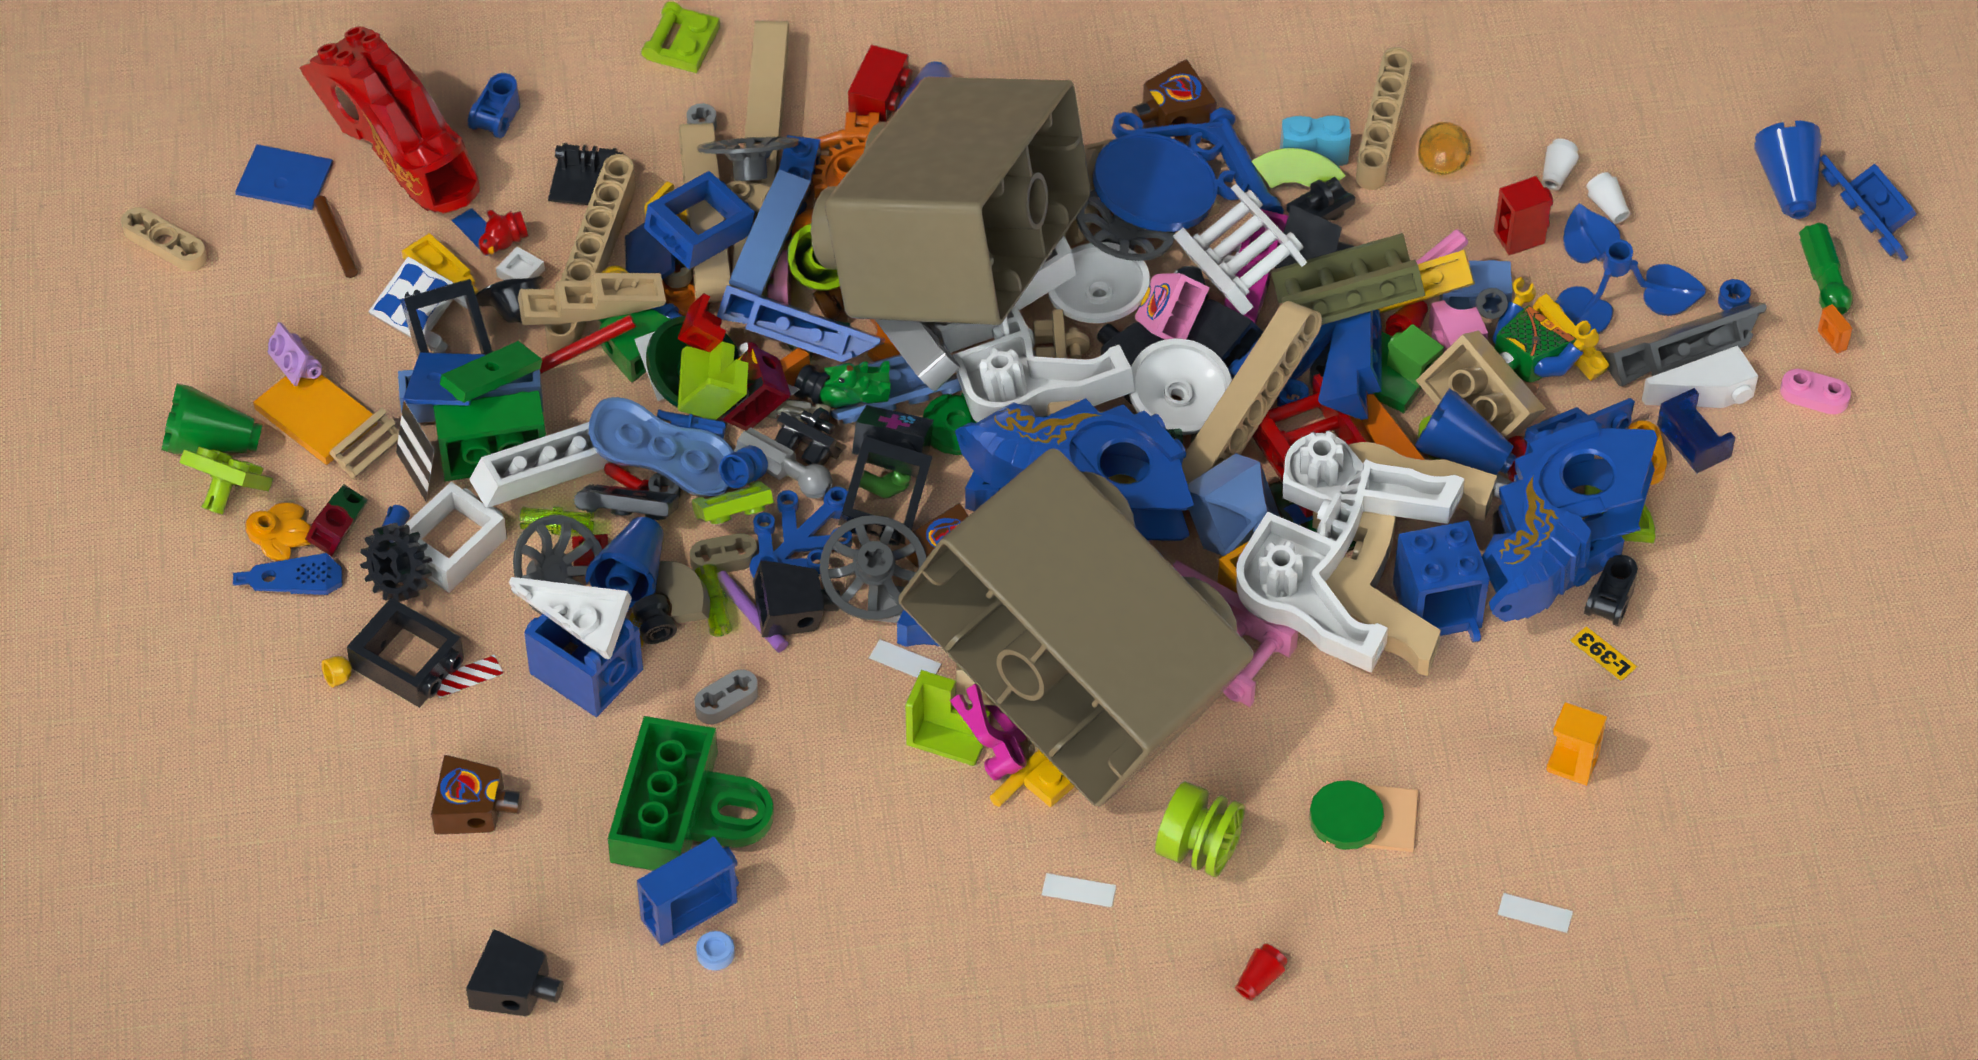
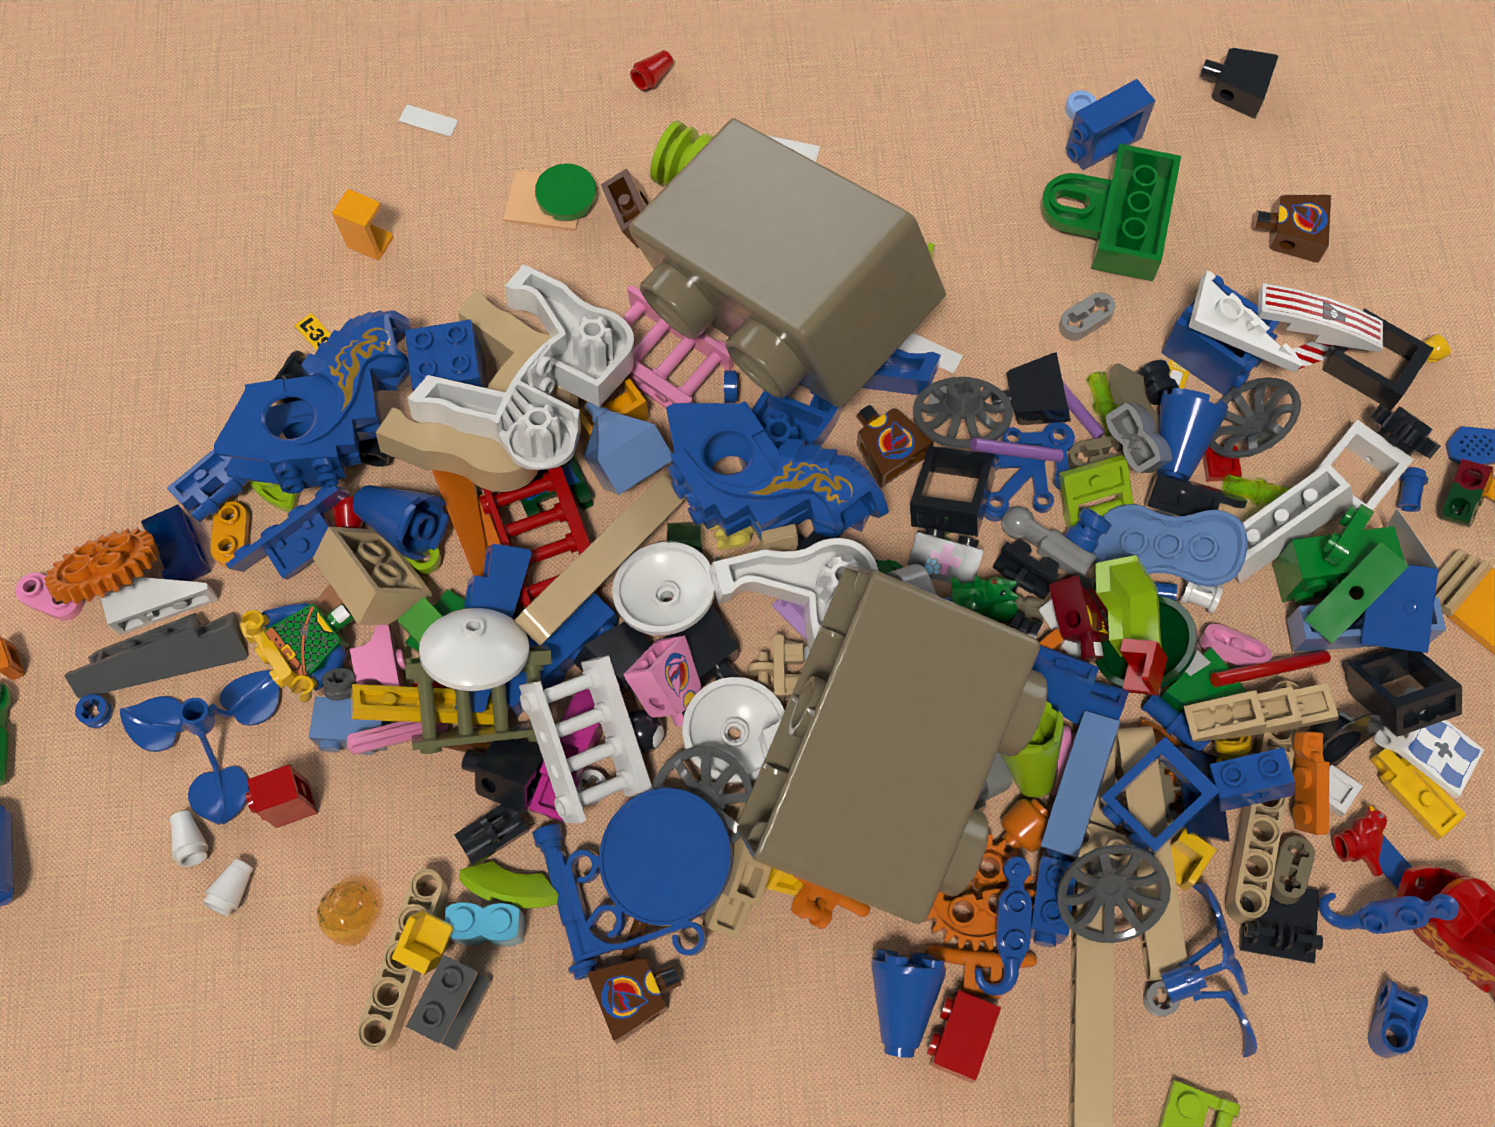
camera: 175 degrees left, 15 degrees up
(473, 646) = (1317, 315): none -> slope
(491, 412) = (1339, 545): none -> green plate
(503, 162) = (1391, 914): none -> blue piece
(548, 254) = (1311, 784): none -> orange hinge
(565, 205) = (1299, 872): none -> dark tan beam
(602, 378) = (1234, 646): none -> bright pink plate
(610, 239) = (1252, 779): none -> blue brick
(679, 106) = (1188, 980): none -> blue plant
(687, 528) = (1135, 429): none -> light grey brick
(816, 524) = (1016, 449): none -> medium lavender bar
(836, 142) = (1012, 927): none -> blue piece
(1262, 780) = (625, 199): none -> reddish brown brick
(1339, 63) = (449, 1003): none -> dark grey panel
(1361, 313) = (474, 649): none -> white dish
(1364, 100) = (423, 942): none -> yellow panel
(1688, 493) = (201, 481): none -> blue plate
(1756, 358) = (101, 566): none -> orange gear

